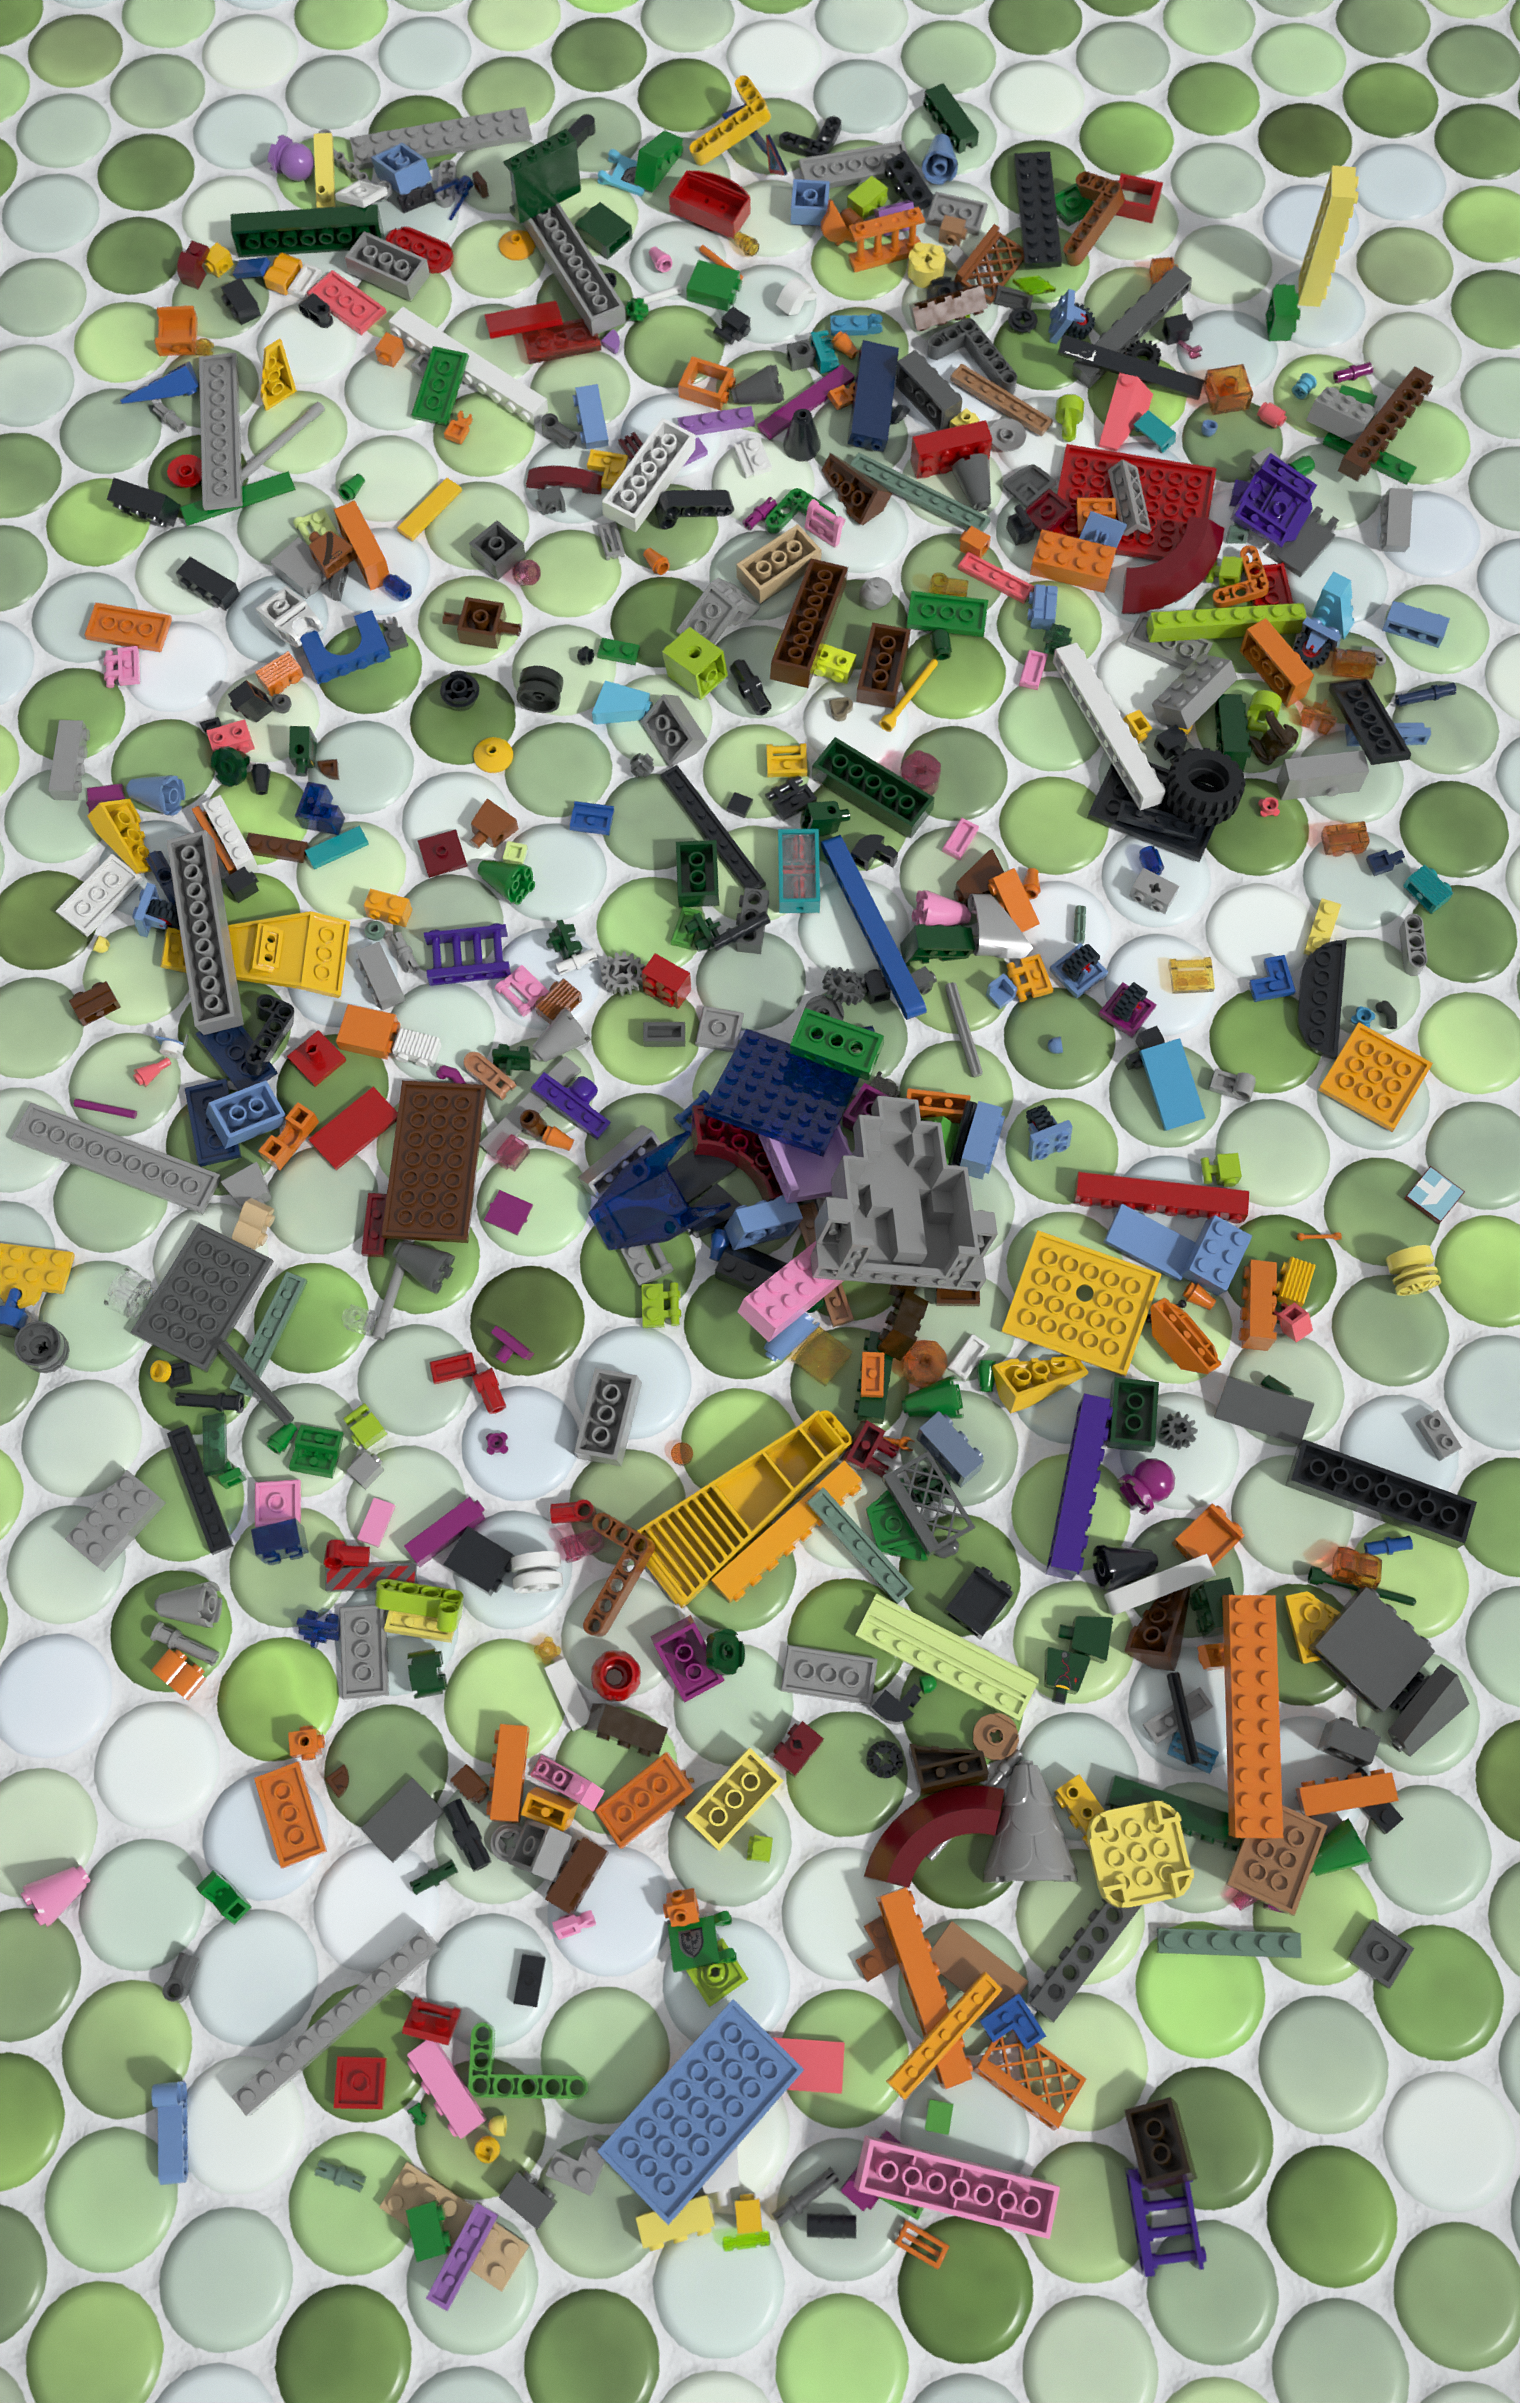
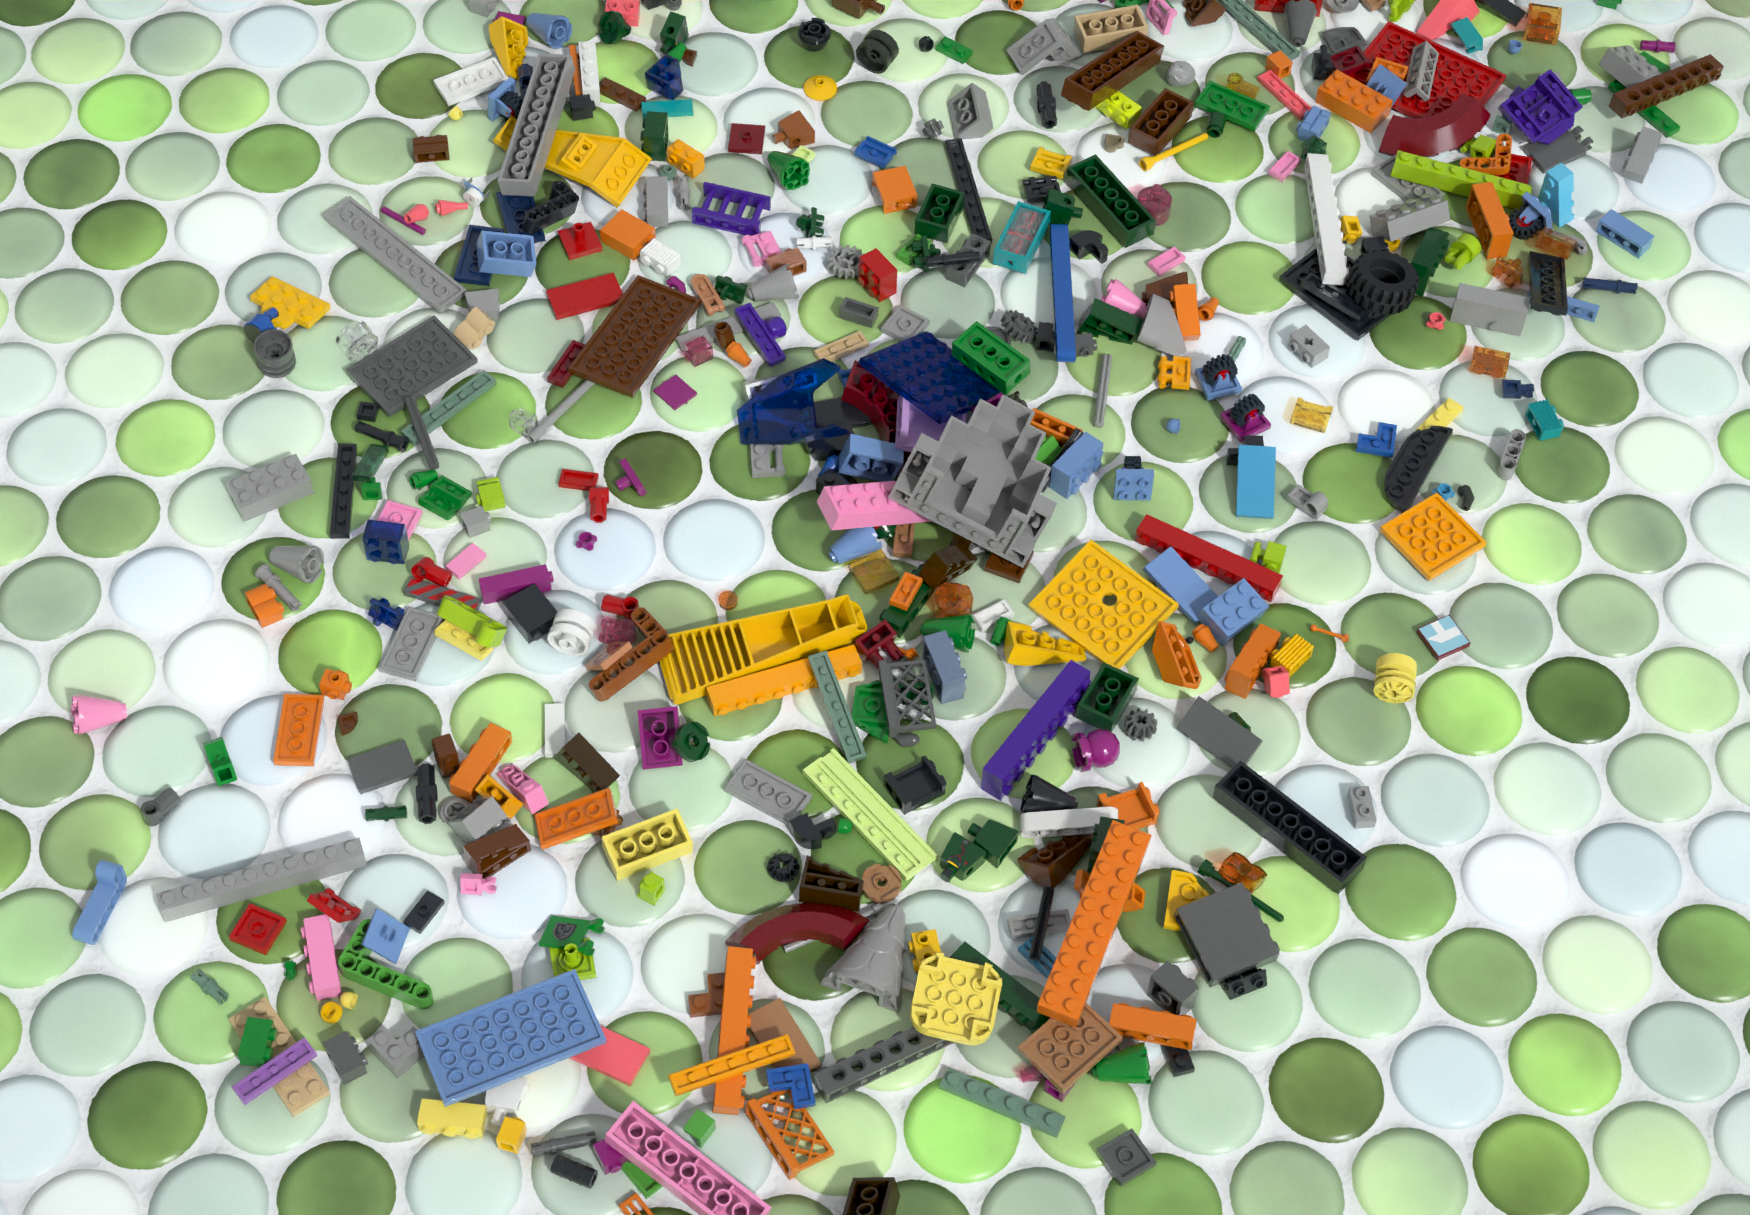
camera: 20 degrees right, 15 degrees down
(118, 1096) = (417, 213): none -> coral cone
(160, 1371) = (354, 403): yellow tile -> none
(261, 777) = (633, 43): black cone -> none
(298, 1126) = (544, 277): orange arch -> none
(316, 772) = (678, 51): none -> green cone
(342, 893) = (655, 135): none -> dark green brick
(425, 1264) = (593, 400): dark grey cone -> none
(426, 1673) = (451, 669): dark green brick -> none
(504, 2033) = (385, 936): none -> medium blue piece
(554, 1650) = (553, 698): clear yellow plate -> none
(588, 1583) = (608, 655): none -> nougat tile
(608, 1417) = (681, 551): light grey brick -> none
(620, 704) = (935, 83): medium azure slope -> none
(629, 1670) = (600, 717): red piece -> none
(634, 859) = (895, 189): none -> orange panel
(653, 1305) = (757, 491): lime plate -> none
(663, 1085) = (842, 347): none -> tan tile
(681, 1907) = (568, 903): orange brick -> none
(695, 663) = (1008, 72): lime brick -> none
(739, 805) = (998, 181): black tile -> none
(746, 2241) = (501, 1156): clear neon green axle -> none
(798, 1748) = (716, 831): dark red brick -> none
(1001, 991) = (1146, 372): medium blue panel -> none
(1151, 860) = (1317, 323): clear blue brick -> none
(1272, 415) = (1572, 53): coral brick -> none
(1275, 741) = (1461, 272): dark brown hair -> none
(1304, 385) = (1610, 41): medium azure bush -> none
(1388, 1545) = (1280, 869): blue pin -> none
(1429, 1711) = (1255, 994): dark grey slope -> none

